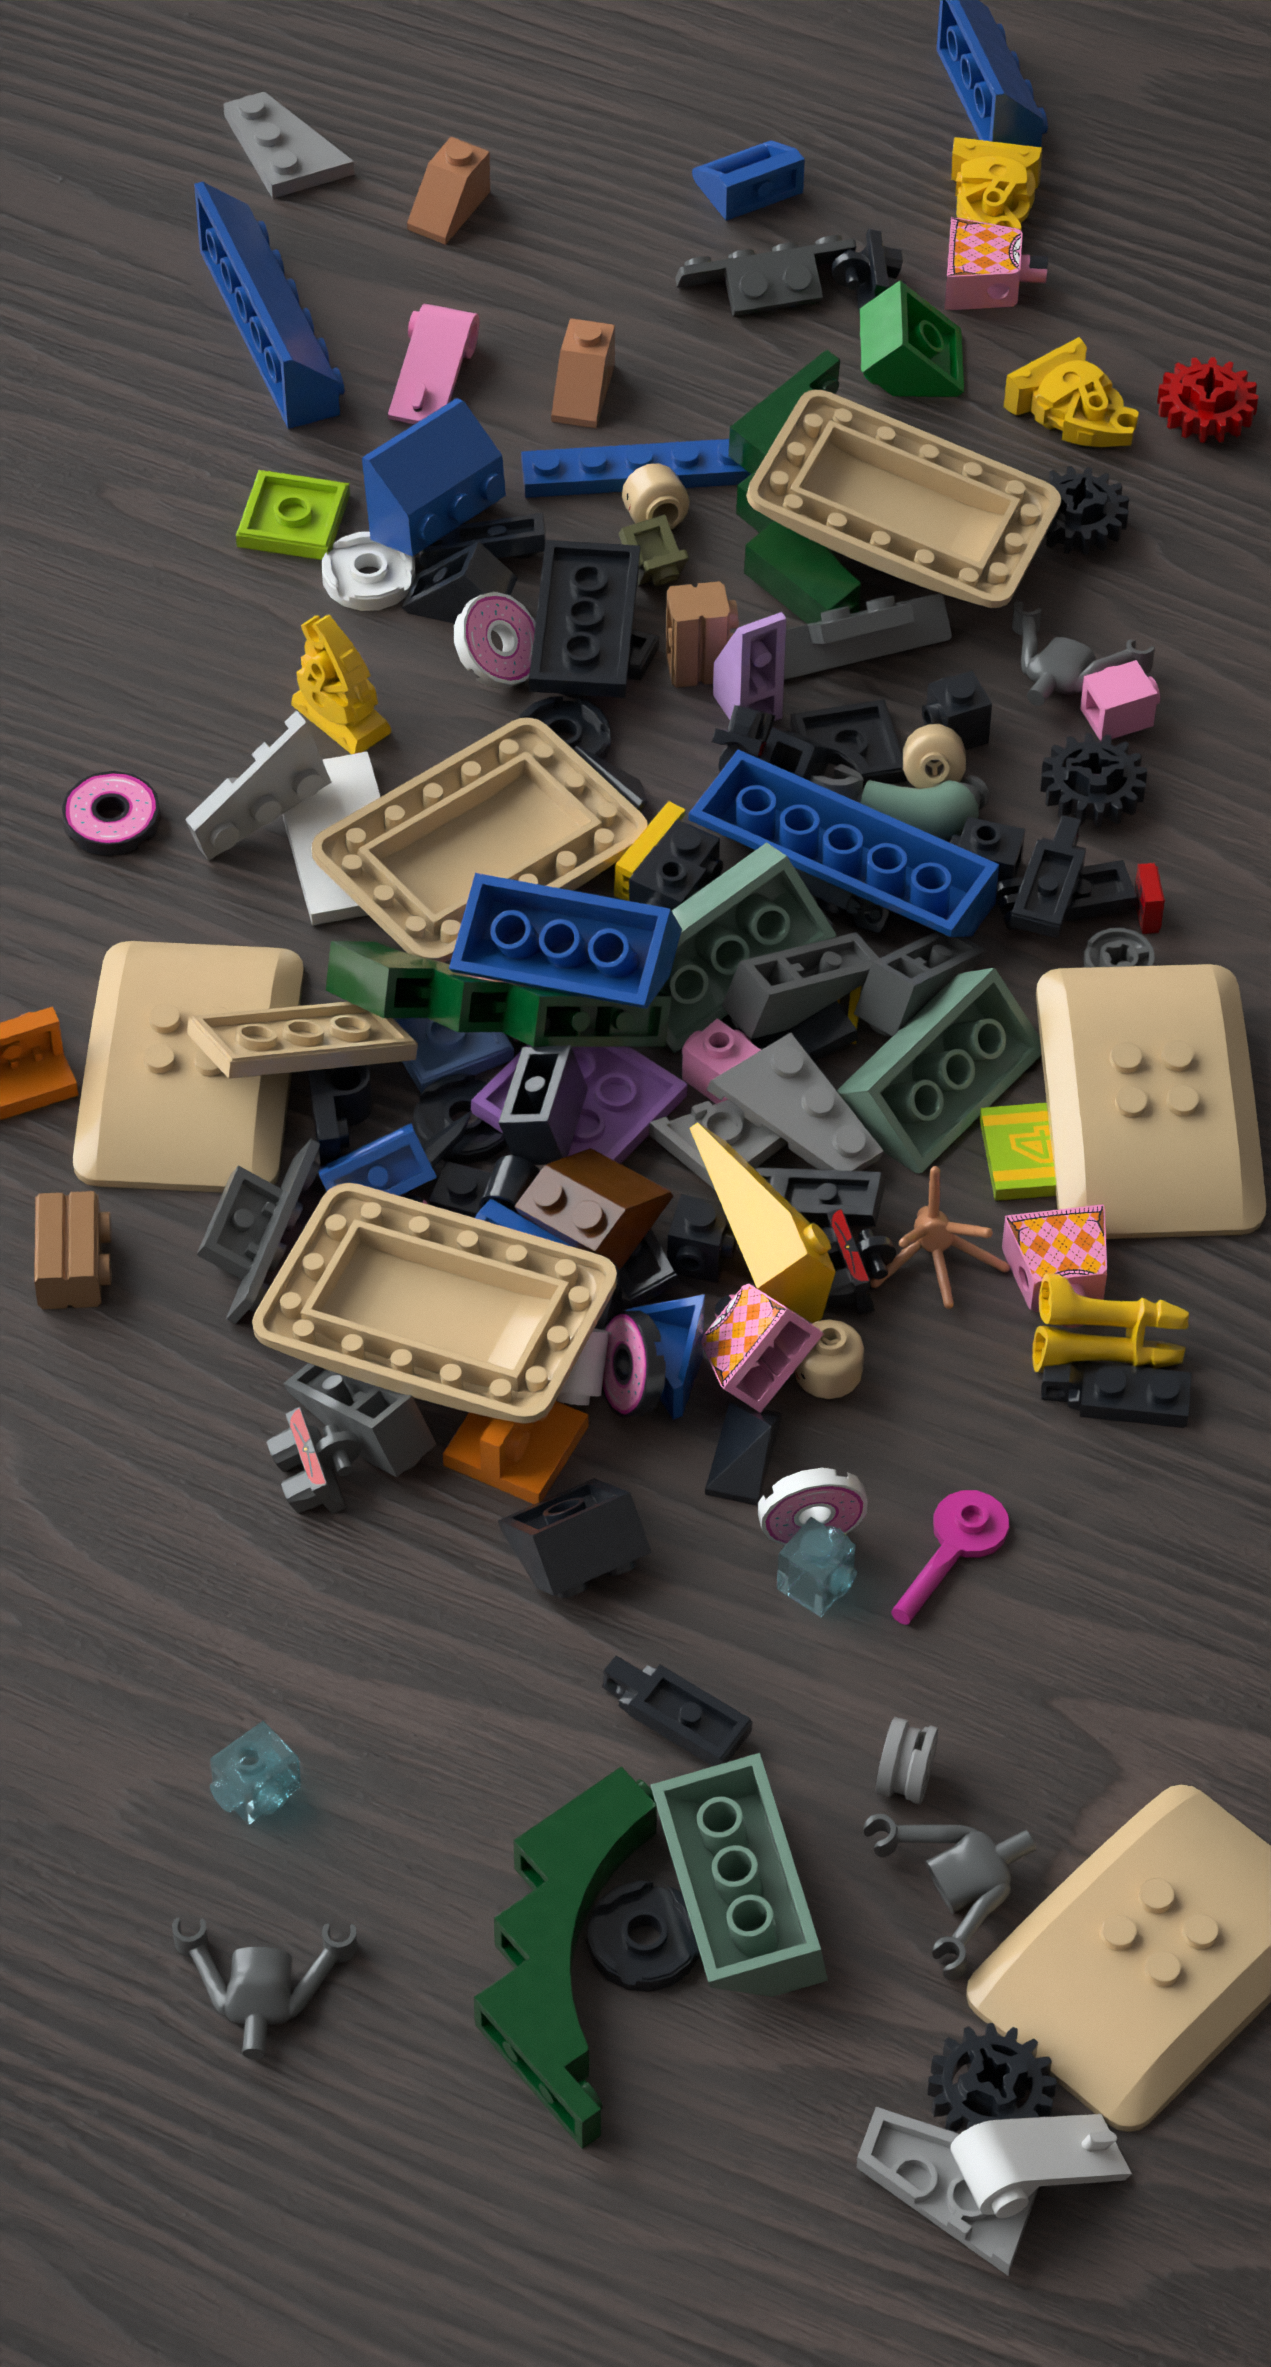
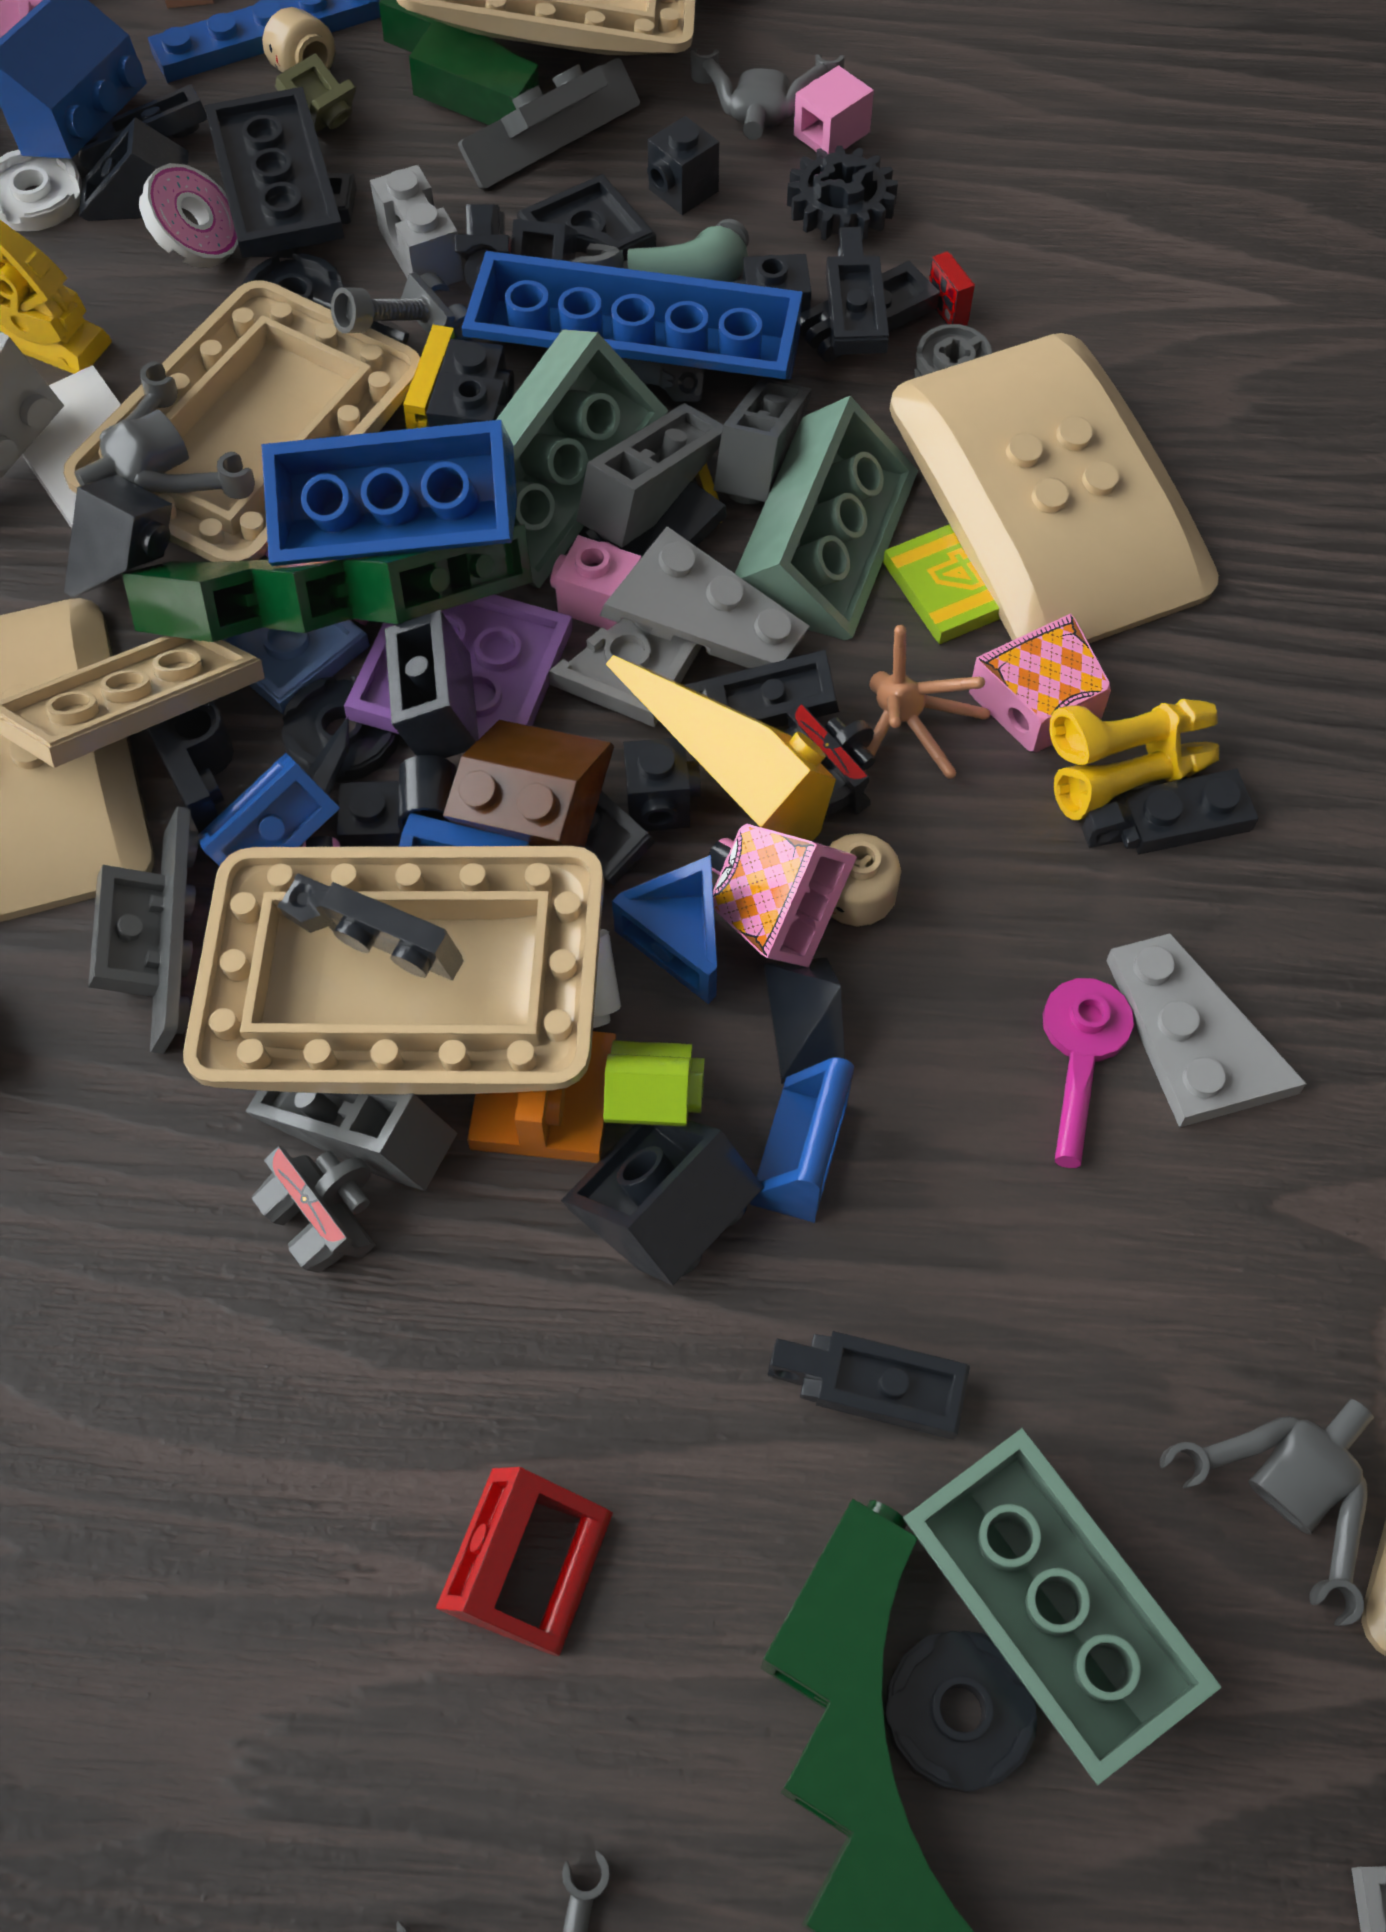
camera: 20 degrees left, 10 degrees up
(254, 1774) = (393, 1673): clear light blue brick -> none
(336, 906) = (114, 533): none -> black slope
(384, 1691) = (491, 1547): none -> red tile
(389, 841) = (150, 445): none -> dark grey piece
(425, 1262) = (369, 923): none -> black hinge
(596, 1450) = (652, 1083): none -> lime brick
(632, 1369) = (672, 978): tile -> none
(669, 775) = (355, 310): none -> dark grey bar
(692, 707) = (413, 227): none -> light grey brick
(697, 631) = (395, 136): medium nougat brick -> none
(702, 1535) = (804, 1139): none -> blue tile
(752, 667) = (467, 160): lavender slope -> none
(813, 1494) = (926, 1068): tile -> none
(816, 1566) = (959, 1136): clear light blue brick -> none
(907, 1760) = (1174, 1355): light grey wheel -> none
(931, 744) = (667, 206): tan head -> none
(1052, 1561) = (1195, 1036): none -> light grey wing

